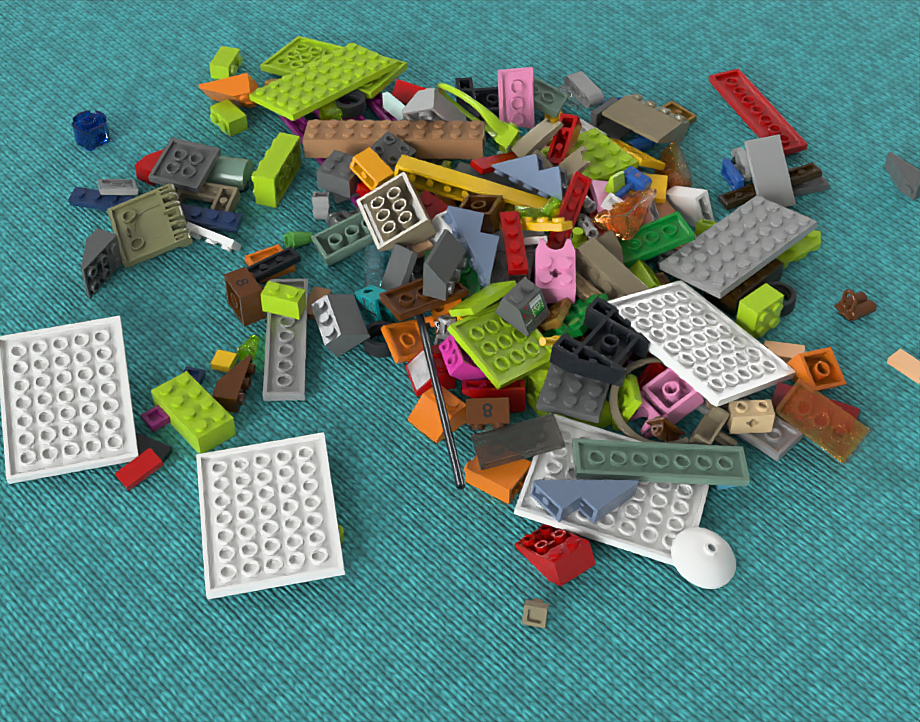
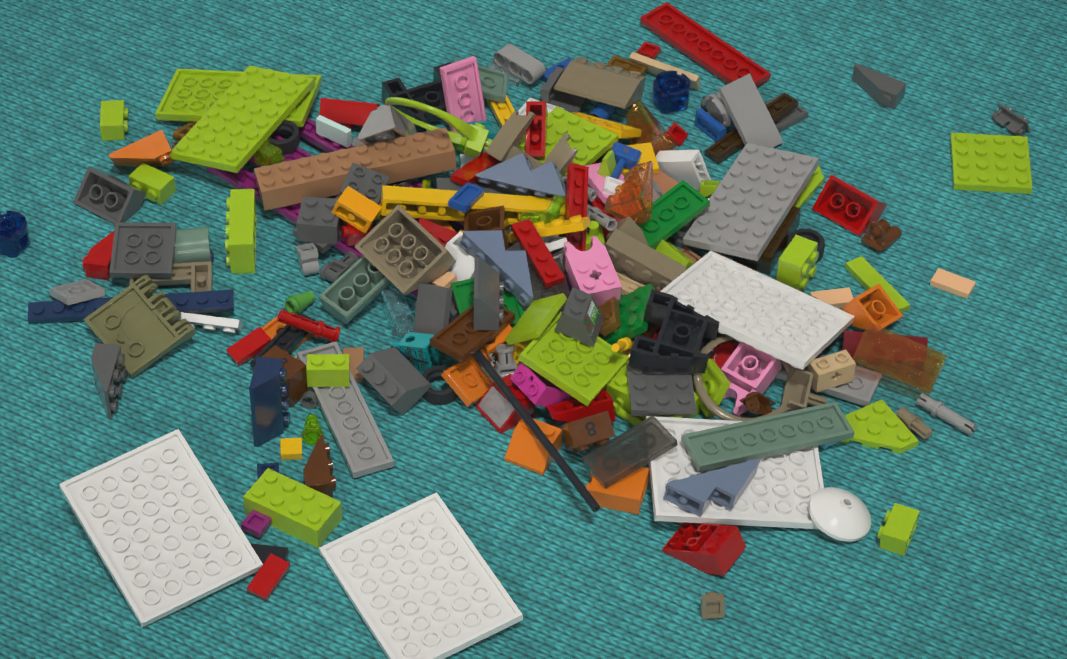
camera: 20 degrees left, 0 degrees up
(188, 119) = (108, 196): none -> dark grey slope
(211, 311) = (268, 400): none -> dark blue slope
(233, 263) = (248, 346): none -> red tile
(257, 322) = (309, 404): none -> dark grey hinge
(298, 264) = (317, 328): none -> red pin
(471, 181) = (466, 197): none -> blue tile
(699, 177) = (677, 133): none -> red slope
(705, 105) = (649, 50): none -> red tile
(708, 140) = (671, 92): none -> clear blue brick
(713, 123) = (656, 67): none -> tan tile
(758, 589) = (899, 529): none -> lime brick
(780, 483) = (880, 427): none -> lime plate
(817, 488) = (914, 423): none -> dark tan axle
(826, 337) = (869, 277): none -> lime tile
(833, 271) = (848, 205): none -> red slope
(847, 481) = (938, 409): none -> light grey pin

